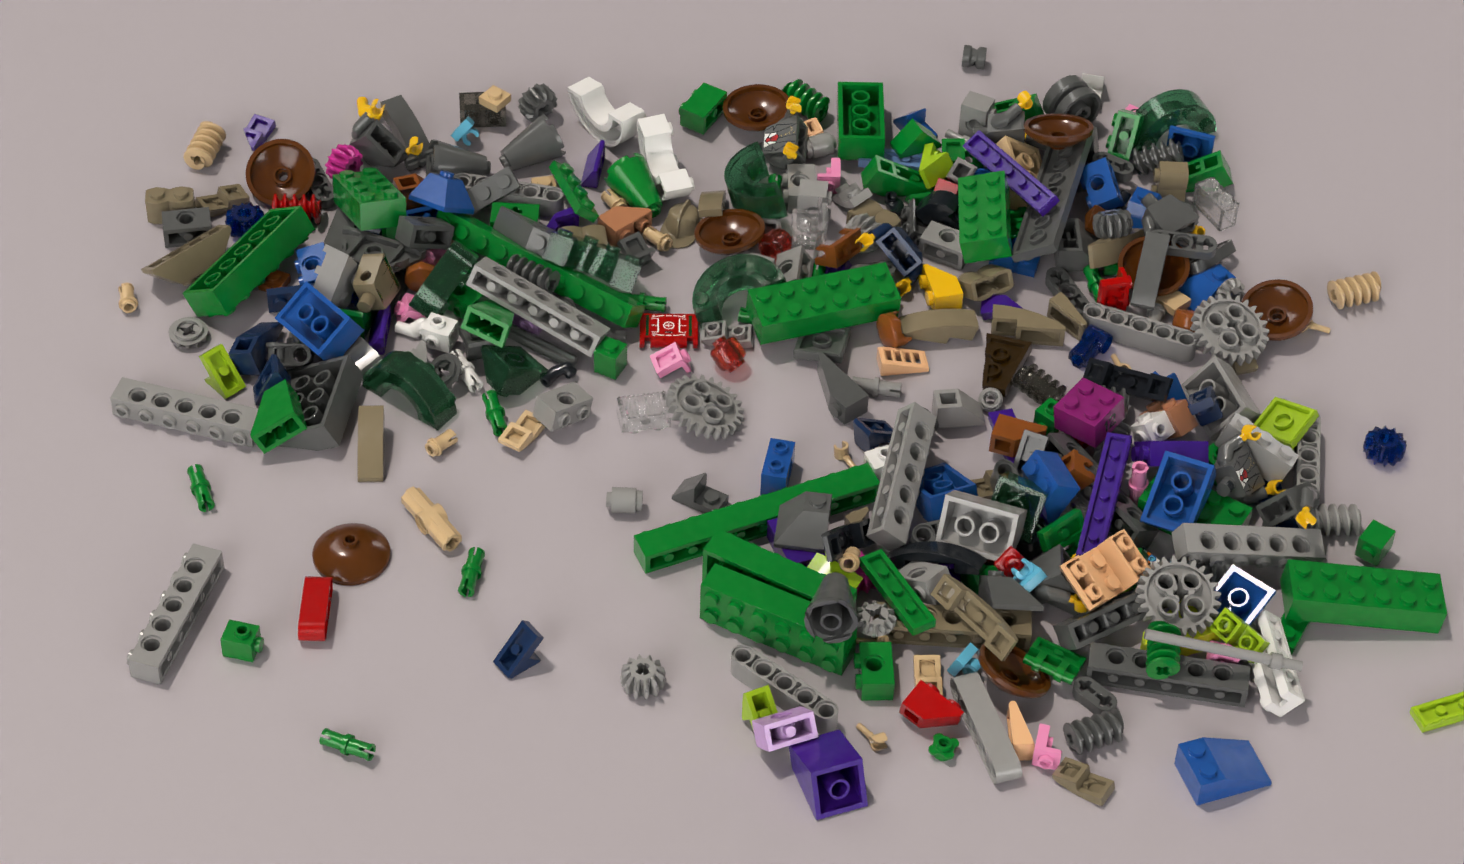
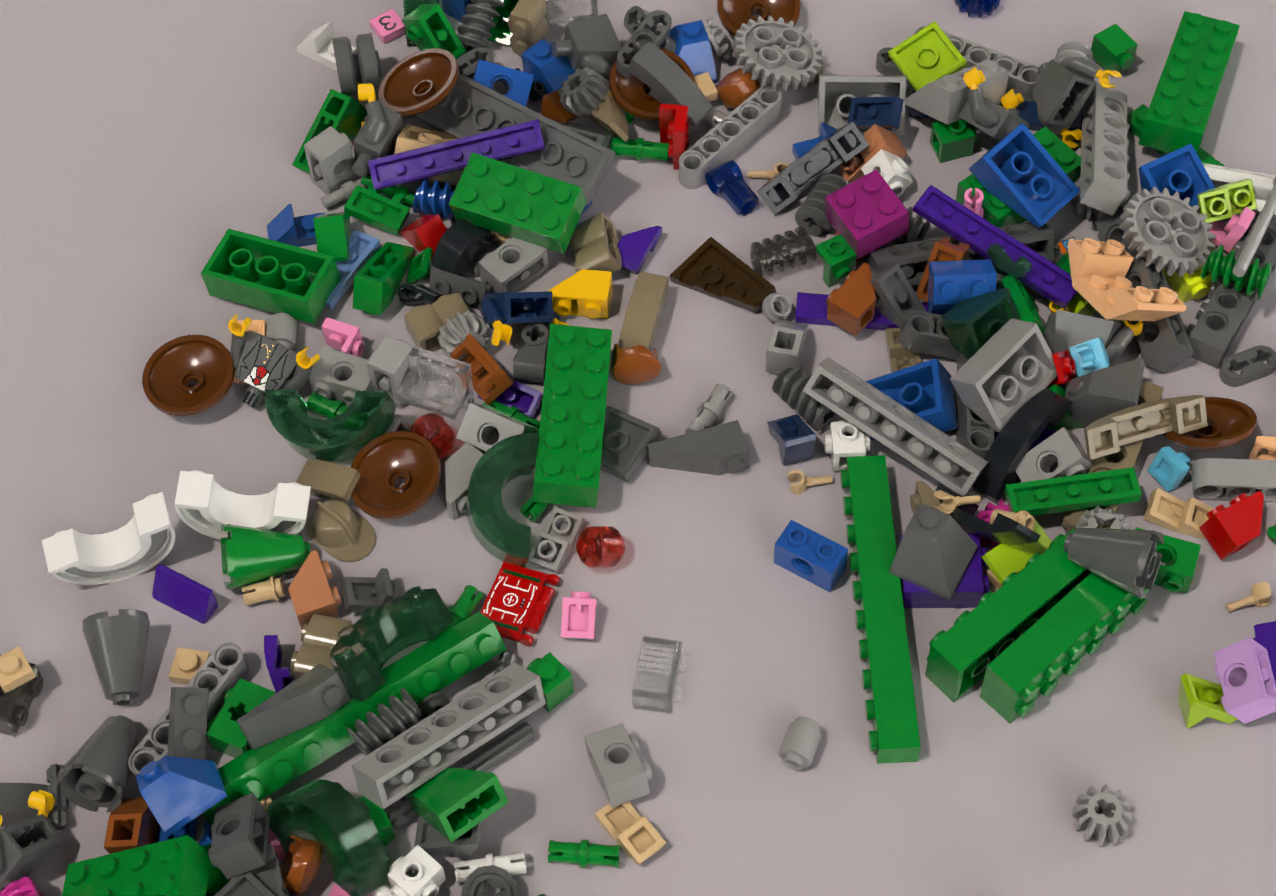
camera: 65 degrees left, 10 degrees up
(464, 129) = (37, 731): medium azure tile -> none
(510, 369) = (531, 811): clear green slope -> none
(537, 102) = (39, 621): dark grey gear -> none
(554, 372) = (537, 754): black arm -> none
(573, 190) = (241, 628): green plate -> none
(662, 241) = (354, 562): tan pin -> none
(698, 496) = (815, 657): dark grey slope -> none
(702, 108) = (152, 435): green brick -> none
(704, 407) = (681, 602): light grey gear -> none
(787, 690) = (1156, 677): light grey beam -> none
(812, 103) = (197, 319): green piece -> none
(850, 195) = (400, 324): light grey slope -> none
(852, 522) = (950, 502): none -> tan hand
(893, 361) = (671, 391): light nougat slope -> none
(934, 165) = (389, 229): lime slope -> none
(961, 169) = (415, 205): flat silver slope -> none
(974, 57) = (212, 134): dark grey wheel -> none
(1026, 326) = (676, 235): dark tan slope -> none
(1052, 281) = (659, 186): dark grey beam -> none
(1054, 660) = (1193, 375): green plate -> none
(1064, 312) = (679, 191): dark tan slope -> none
(1083, 505) = (1008, 265): none -> clear green arm
(1153, 451) = (944, 163): dark purple brick -> none

